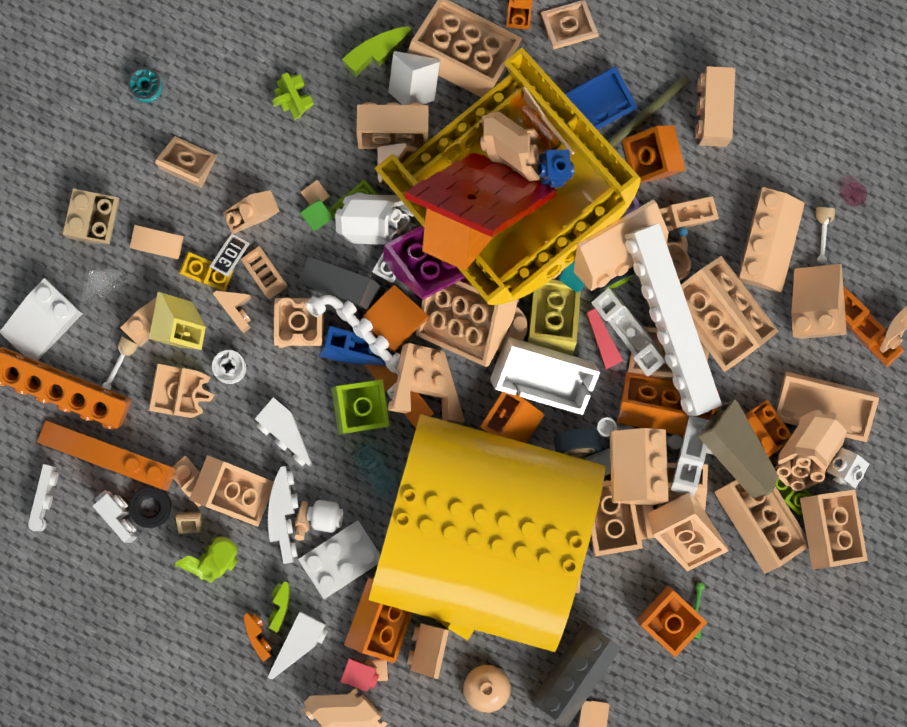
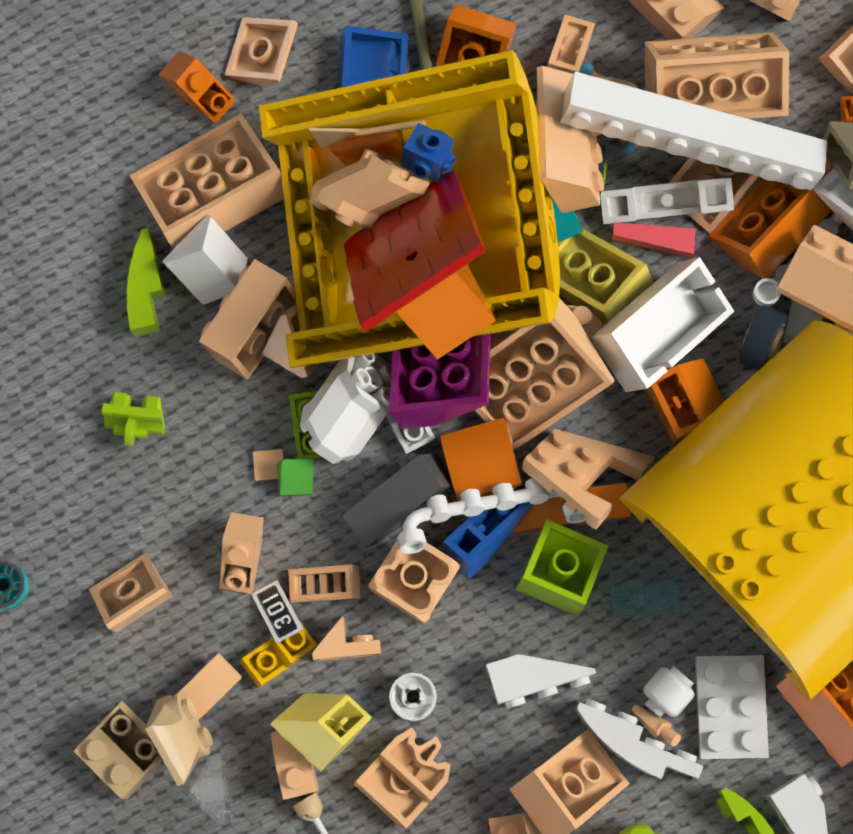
camera: 55 degrees left, 5 degrees down
(118, 243) = (178, 735): none -> tan slope

